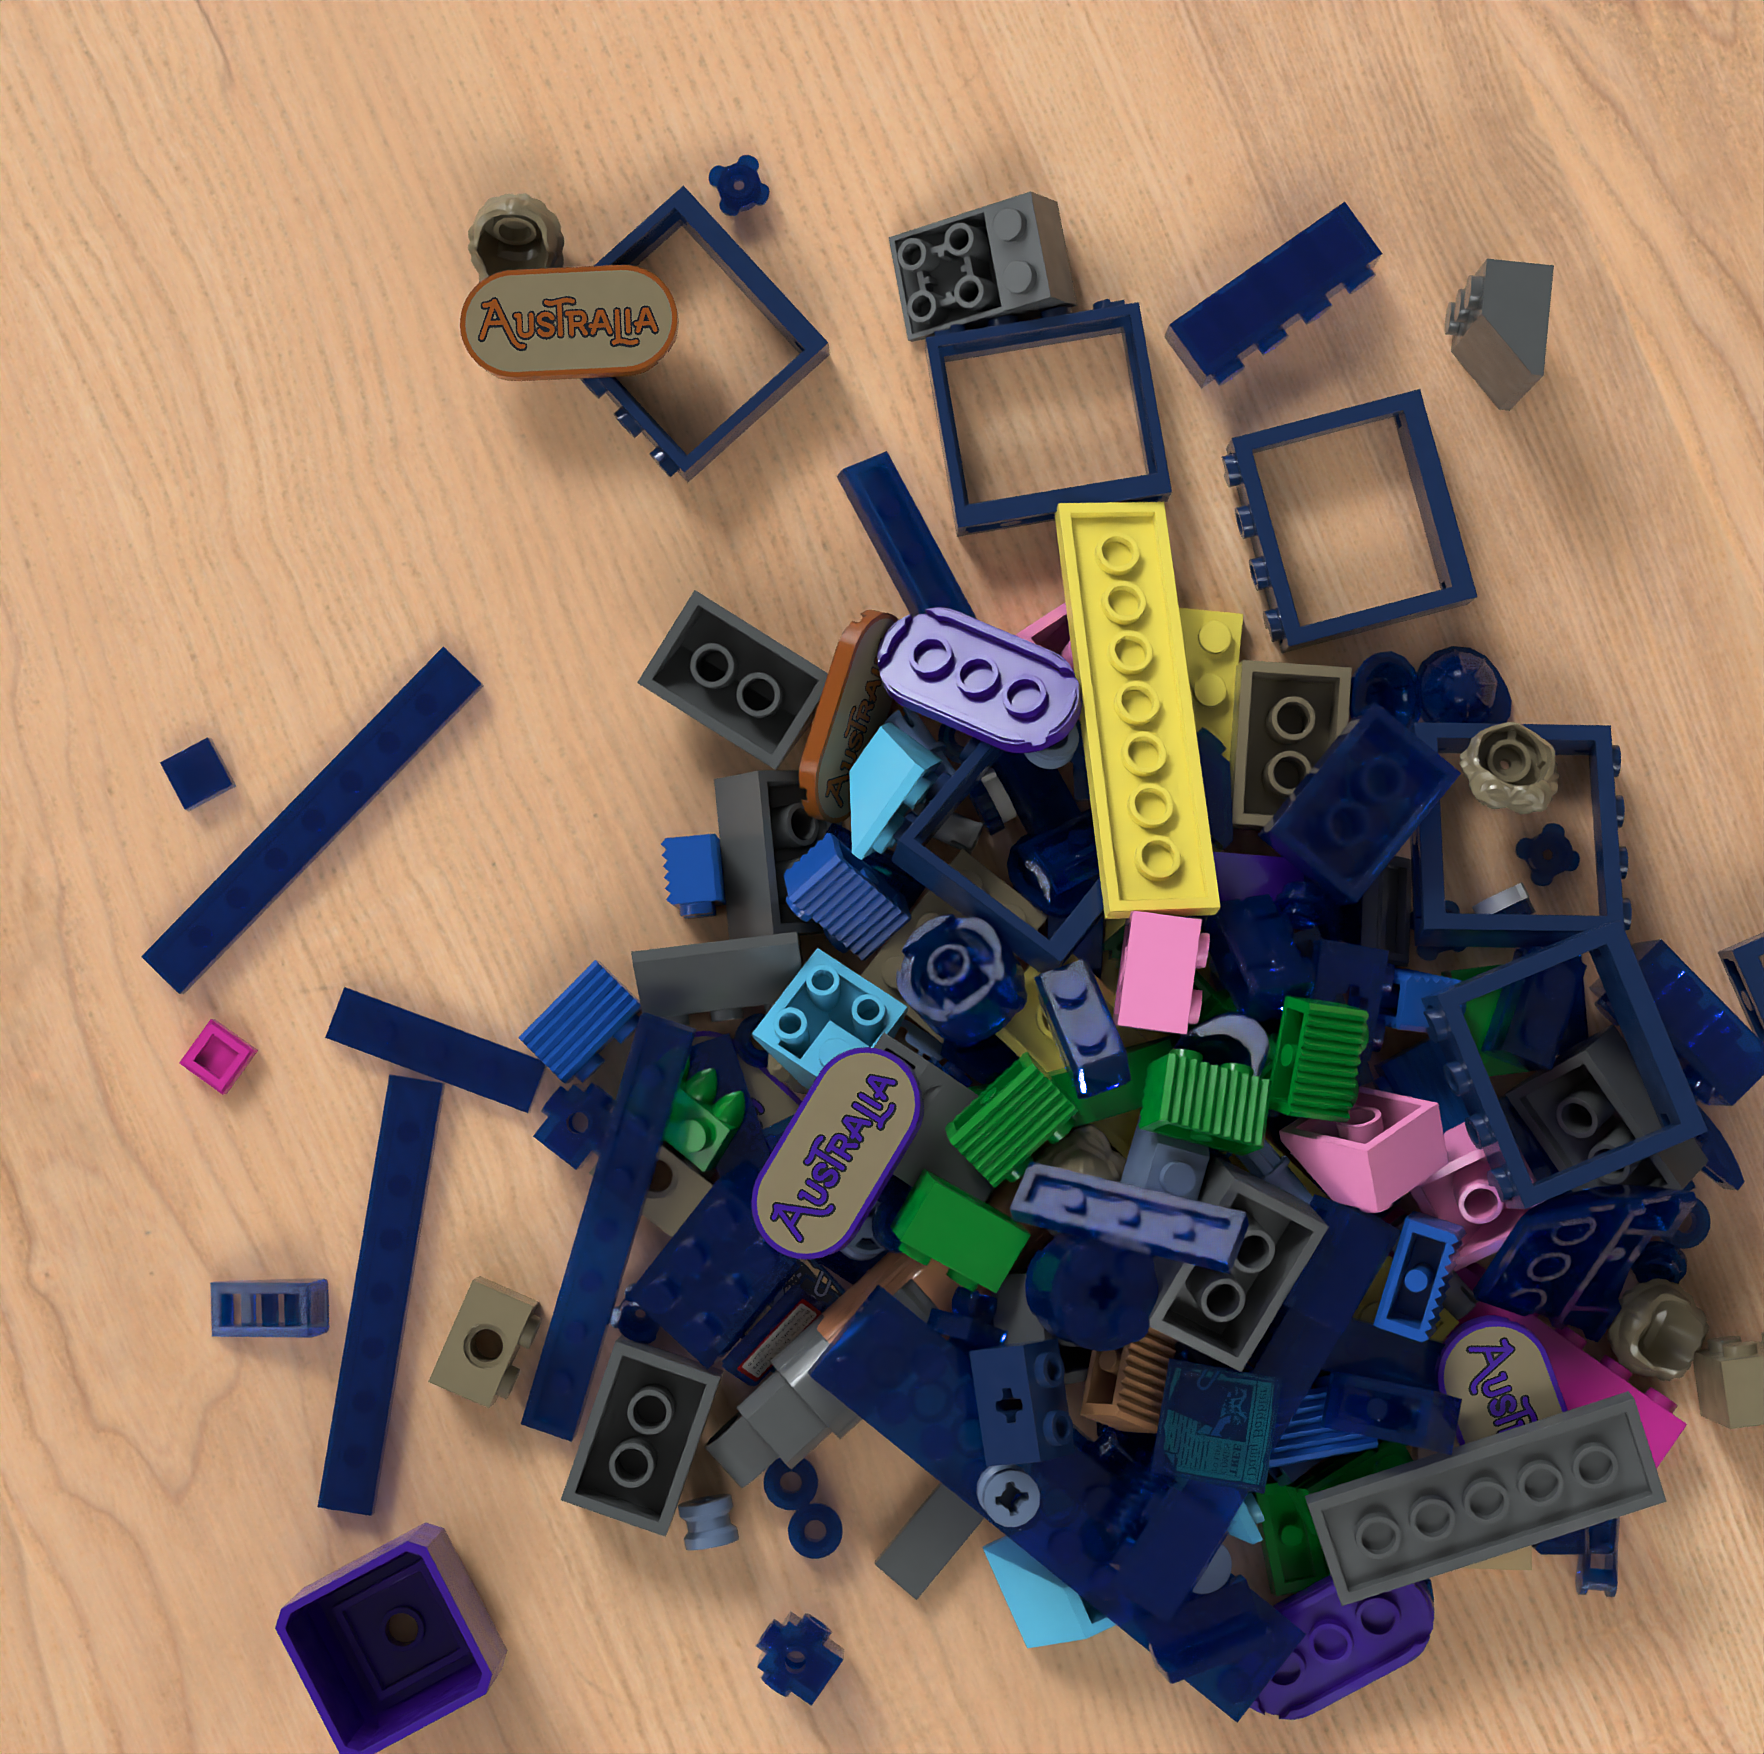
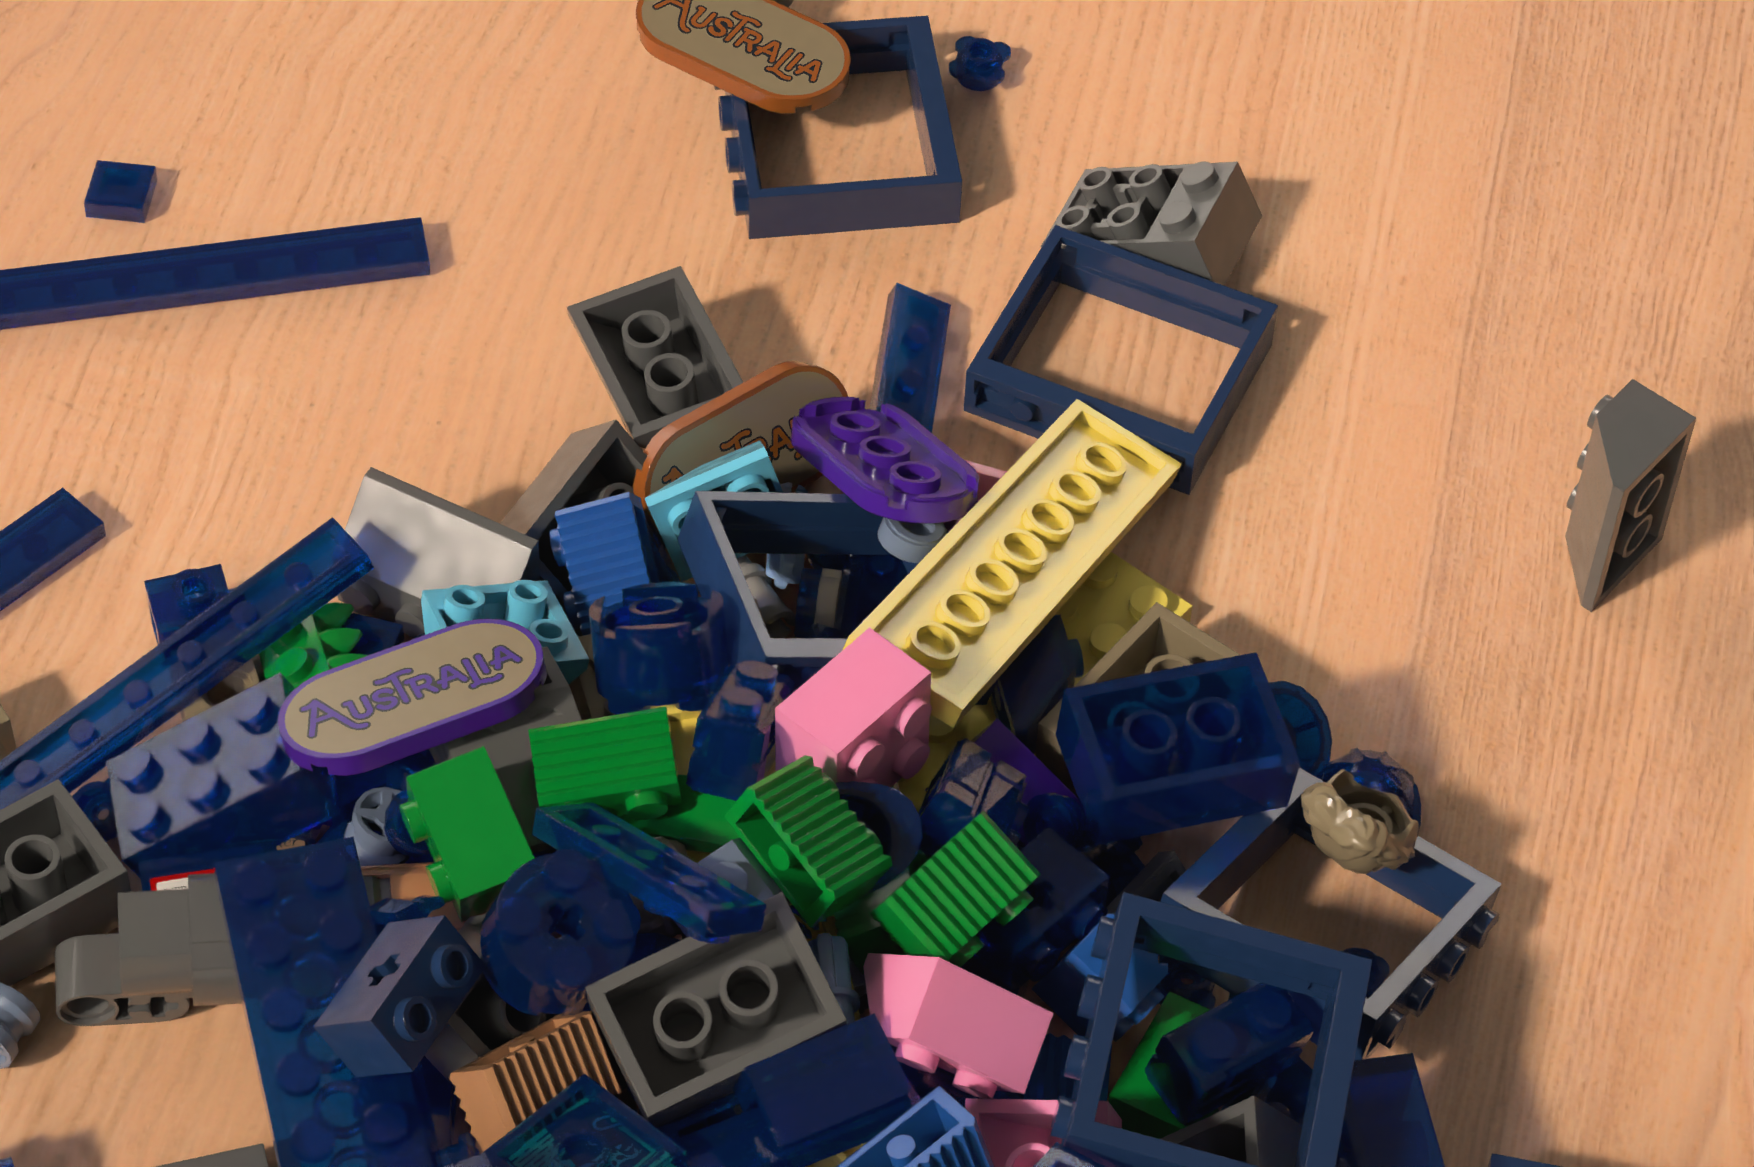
camera: 30 degrees right, 35 degrees down
(436, 1049) = (119, 494): clear blue tile -> none
(583, 1024) = (255, 535): blue brick -> none
(694, 874) = (488, 463): blue brick -> none
(790, 1499) = (103, 1035): clear blue plate -> none
(811, 1547) = (87, 1093): clear blue plate -> none
(1004, 1483) = (312, 1105): sand blue wheel -> none
(1273, 296) = (1415, 385): clear blue brick -> none
(1432, 500) = (1335, 679): dark blue window -> none

